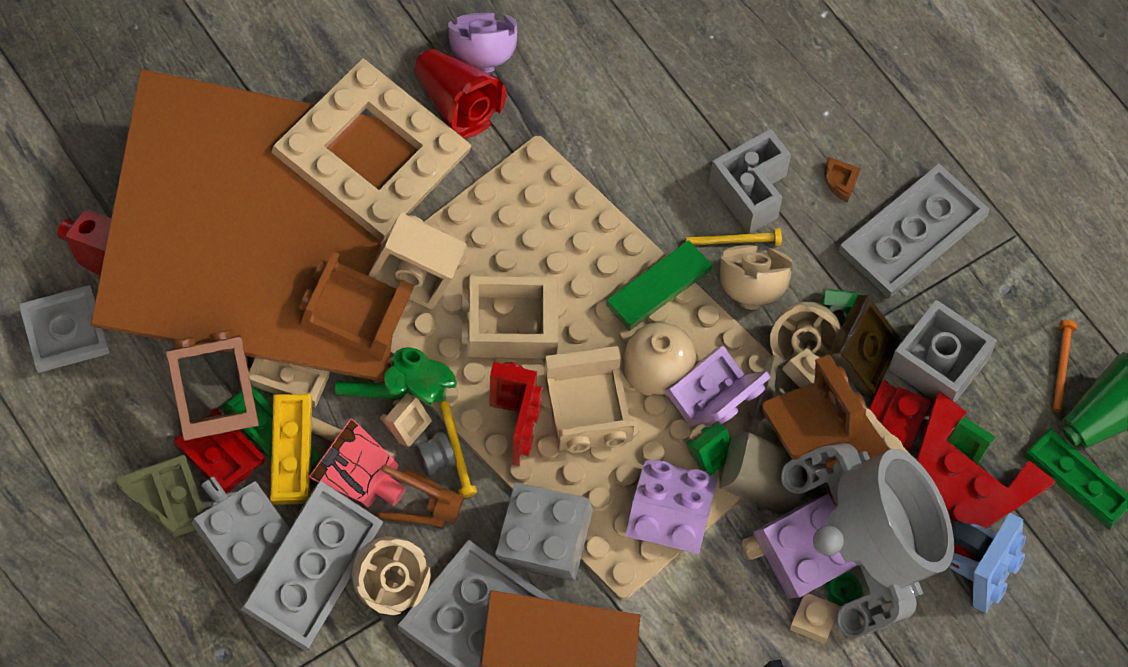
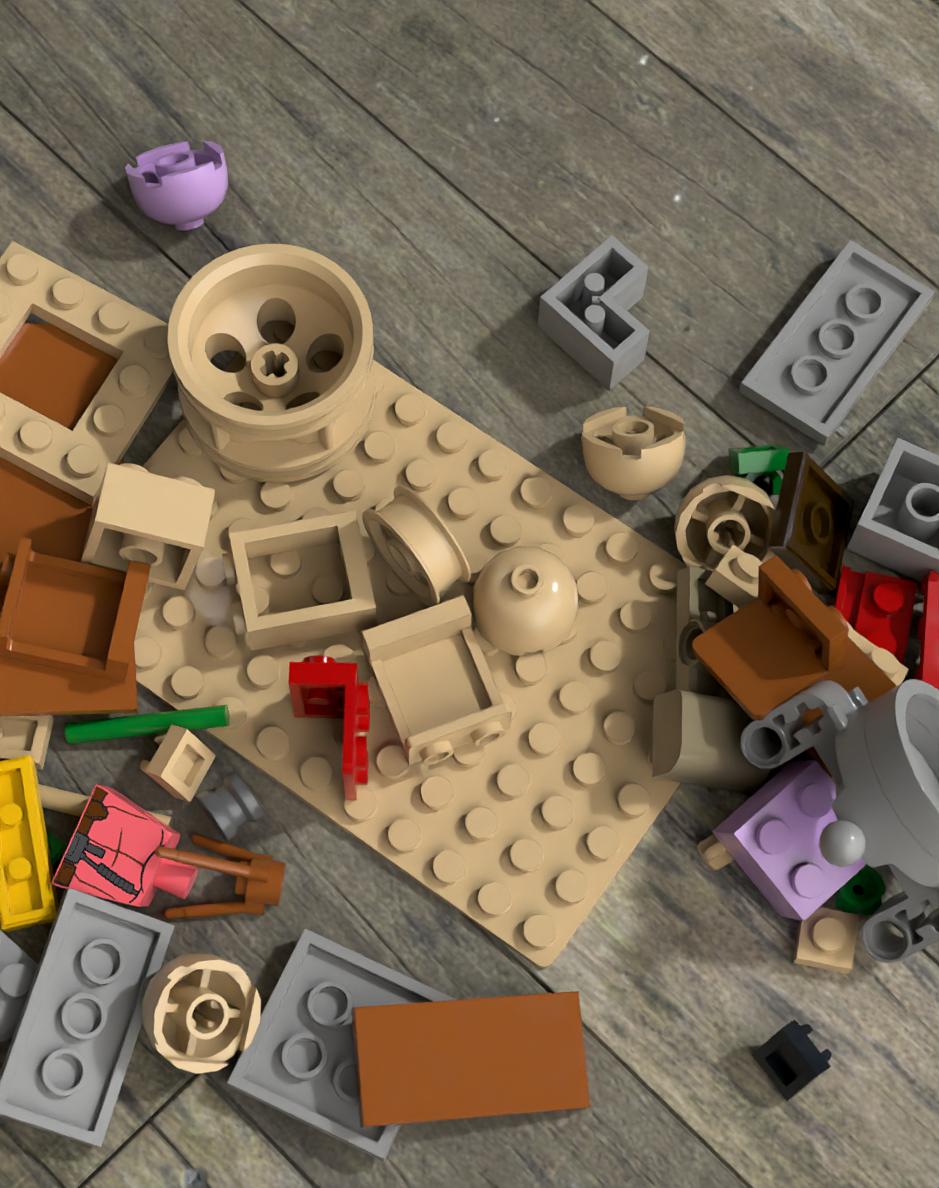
camera: 10 degrees left, 5 degrees up
(418, 375) = (185, 699): green plate -> none
(460, 91) = (152, 255): red cone -> none
(466, 490) = (287, 849): yellow piece -> none
(534, 211) = (225, 311): none -> tan wheel
(544, 531) = (413, 895): light grey brick -> none
(593, 307) = (416, 545): none -> tan wheel
(659, 285) = (504, 487): green tile -> none
(671, 506) = (589, 816): lavender bracket -> none
(710, 448) = (627, 720): green tile -> none
(715, 389) = (617, 631): lavender bracket -> none
(775, 237) = (647, 387): yellow piece -> none
(841, 178) = (718, 285): dark orange tile -> none

